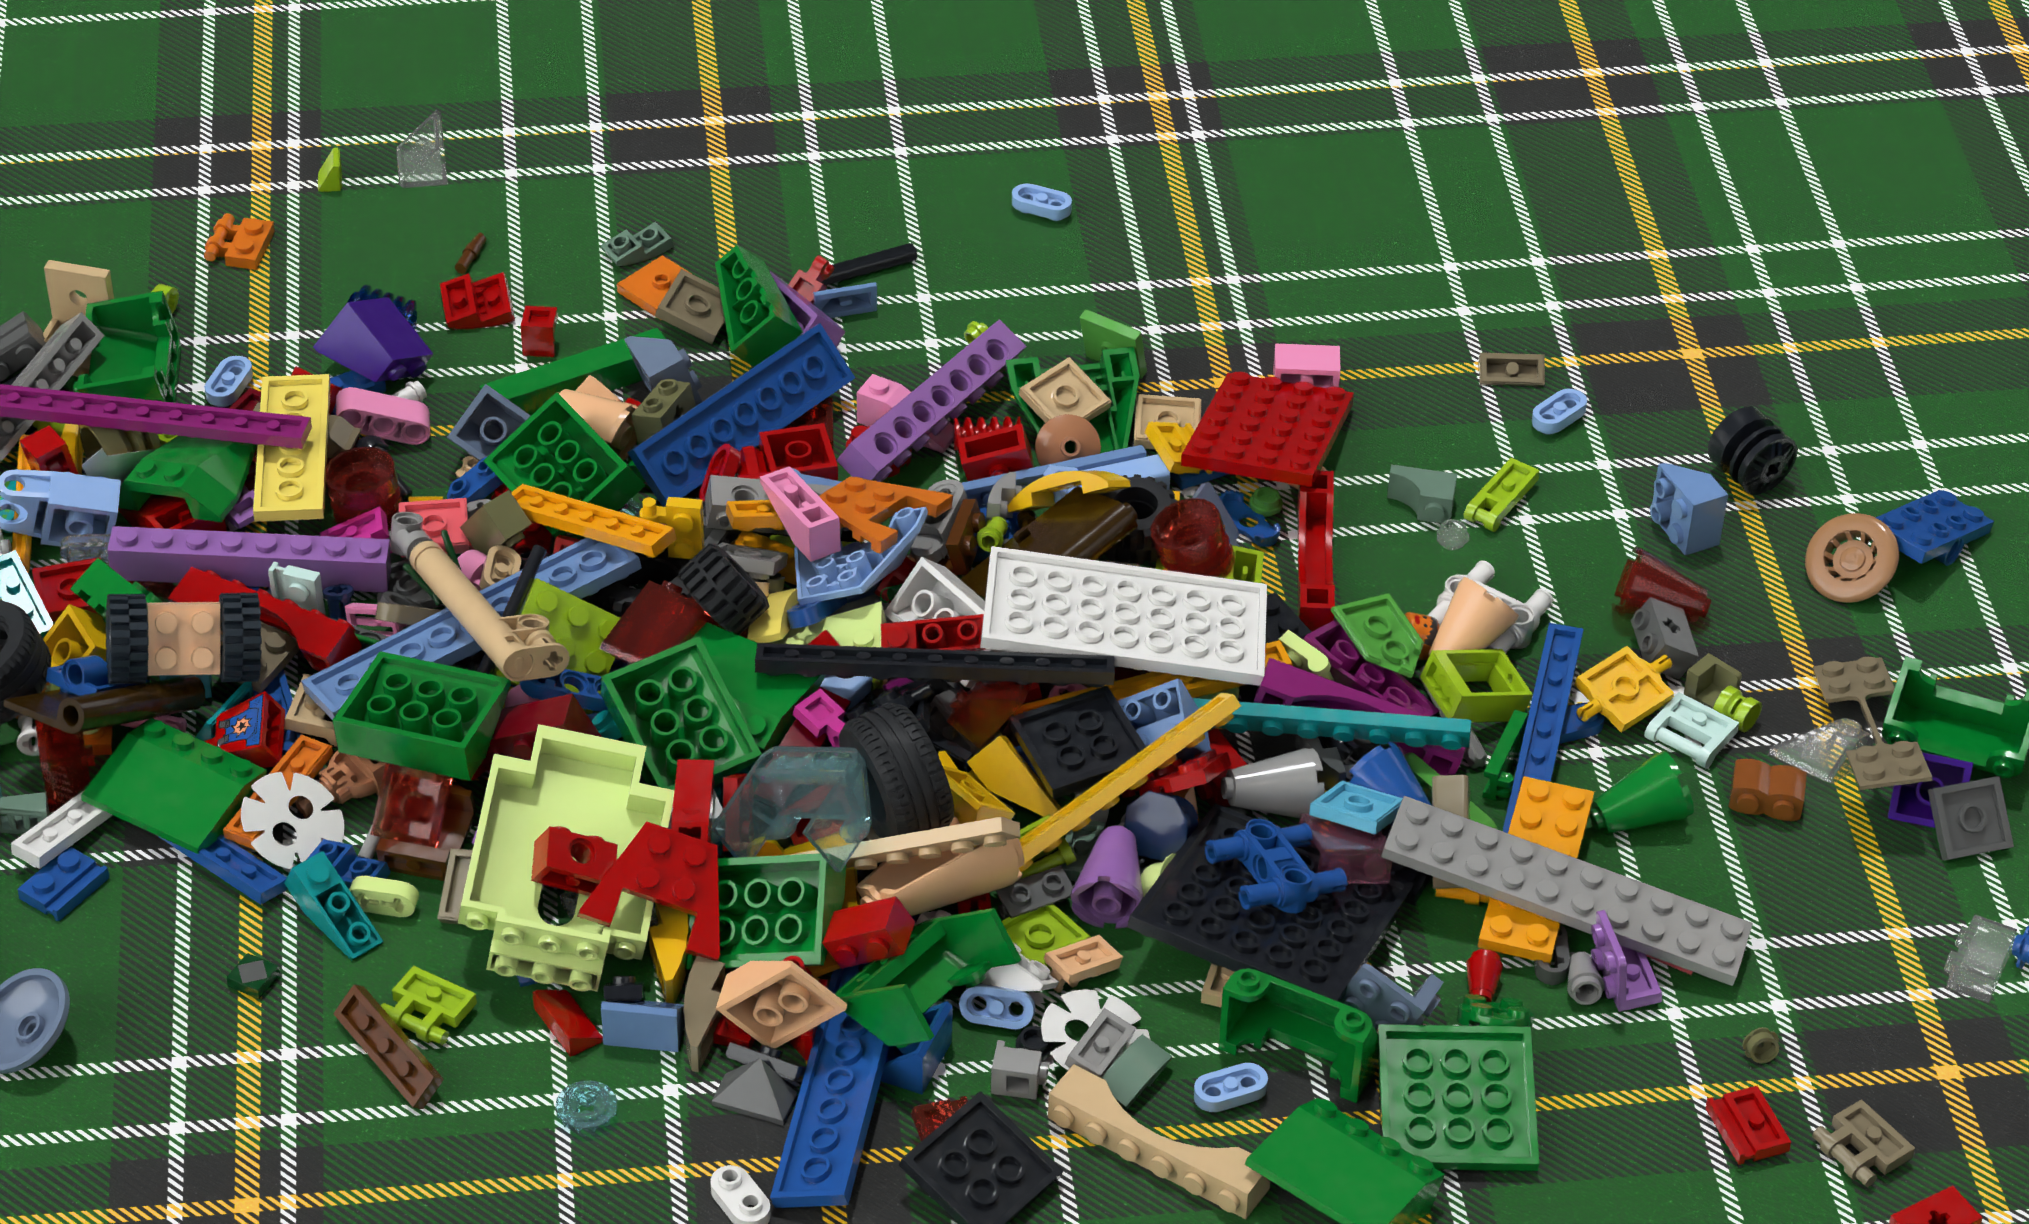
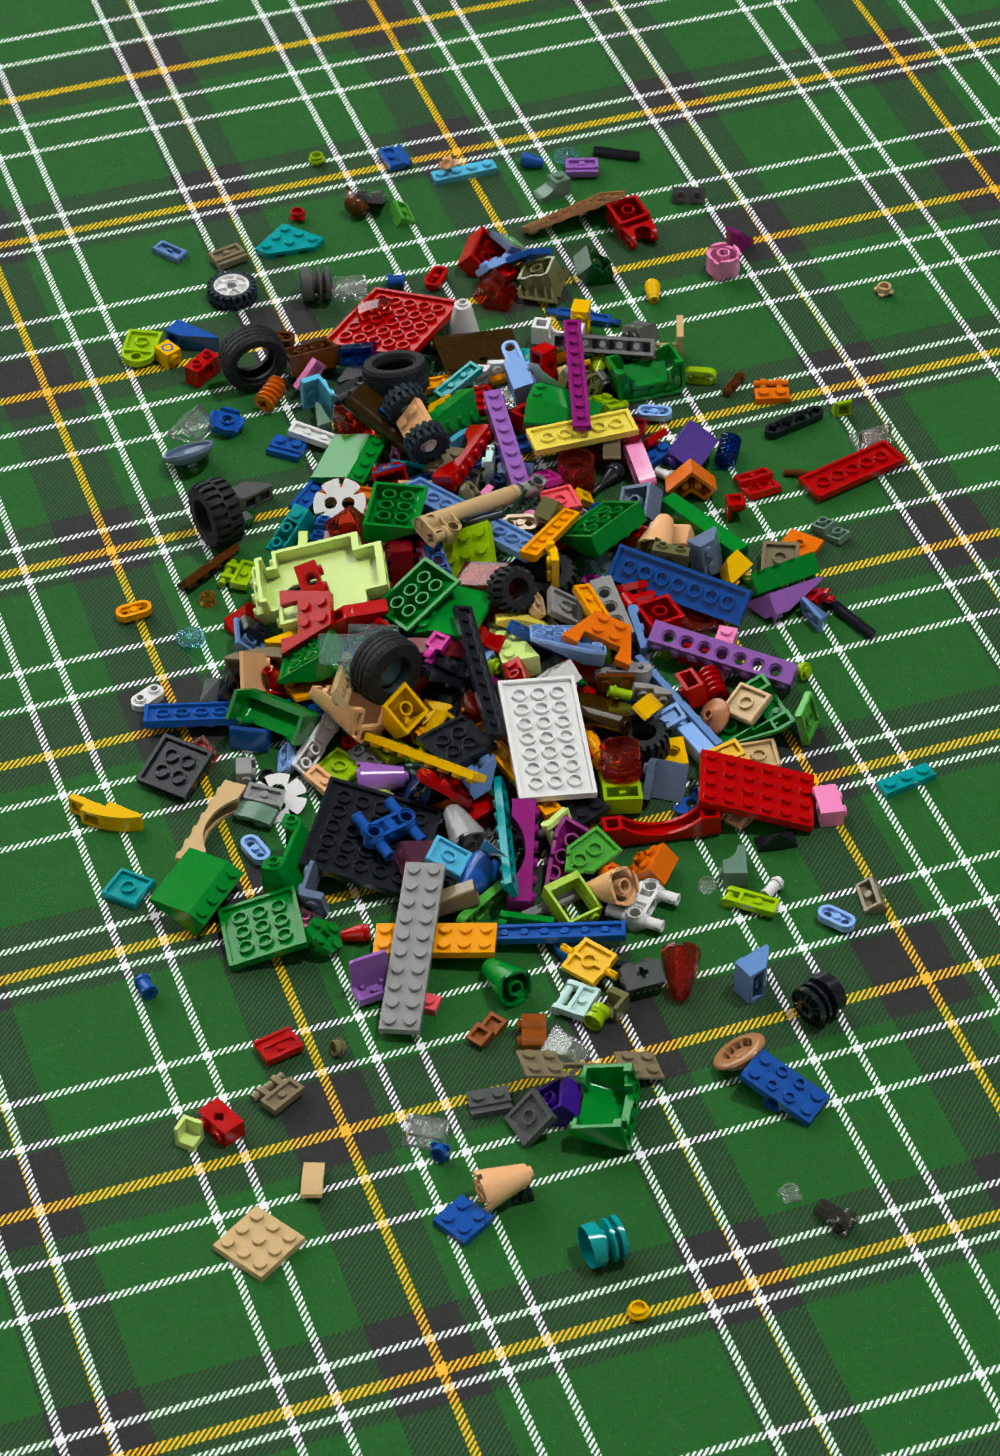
camera: 80 degrees right, 0 degrees up
(39, 69) = (884, 289): none -> tan plate
(194, 954) = (253, 494): none -> dark grey slope
(195, 279) = (732, 385): none -> reddish brown axle
(273, 950) = (216, 512): none -> black tyre
(337, 232) = (776, 429): none -> black beam
(455, 365) = (691, 478): none -> orange brick
(473, 1183) = (133, 611): none -> light orange plate
(474, 1055) = (207, 599): none -> clear orange bush
(499, 193) = (851, 470): none -> red plate
(710, 360) = (735, 567): none -> yellow slope
(803, 513) = (581, 606): bright pink slope -> none
(868, 932) = (293, 689): red brick -> none
(1041, 201) = (940, 677): light blue plate -> none
(1262, 285) = (906, 780): none -> teal plate
(1362, 445) = (776, 841): none -> black slope
(1391, 726) = (490, 849): none -> dark azure sticker
(1408, 579) = (654, 863): none -> orange slope
(1470, 460) = (776, 883): none -> white pin
(1740, 851) = (488, 1030): none -> dark orange slope
(1907, 874) = (489, 1102): none -> dark grey plate

